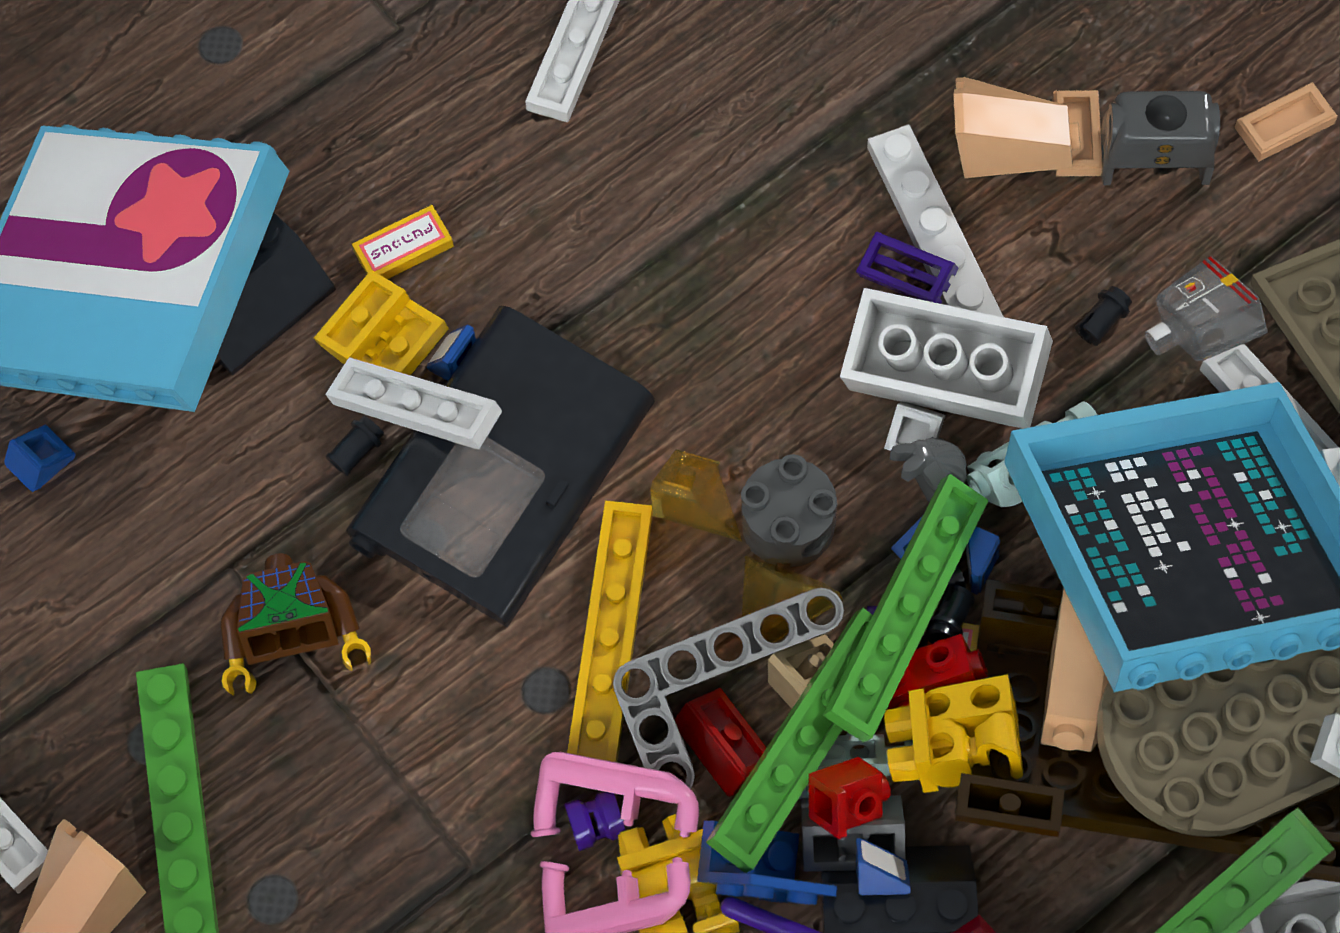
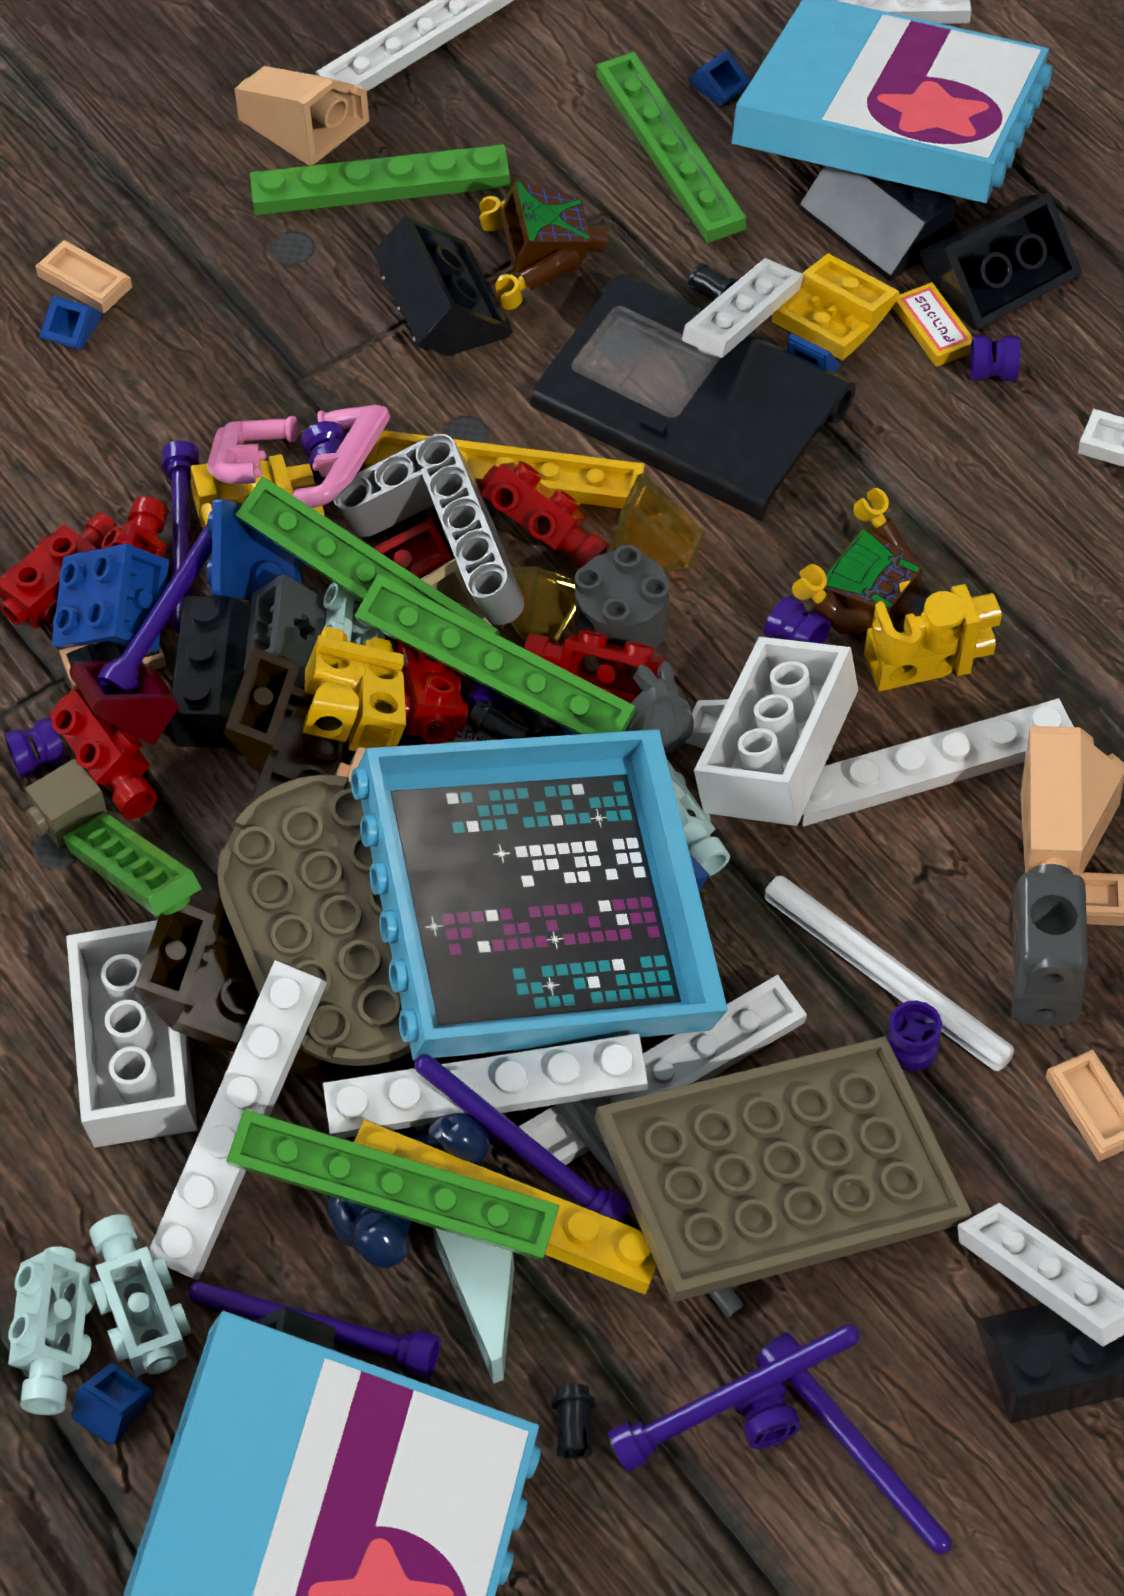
camera: 90 degrees right, 10 degrees down
(144, 500) = (671, 147): none -> bright green plate
(330, 181) = (1002, 260): none -> black slope
(359, 723) = (439, 289): none -> black slope
(457, 186) = (1005, 358): none -> dark purple wheel
(681, 590) = (536, 504): none -> red brick
(745, 290) = (868, 571): none -> torso
(803, 356) = (793, 622): none -> dark purple wheel
(817, 224) = (934, 644): none -> yellow hips
(855, 793) = (304, 601): red brick -> none
(871, 528) = (614, 660): none -> red brick
(880, 870) = (236, 631): blue slope -> none
(938, 283) = (903, 721): dark purple tile -> none
(1103, 315) = (839, 895): black pin -> none
(1146, 312) = (887, 971): none -> white axle
(1206, 313) = (833, 978): clear torso -> none
(1247, 250) = (922, 1027): none -> dark purple wheel

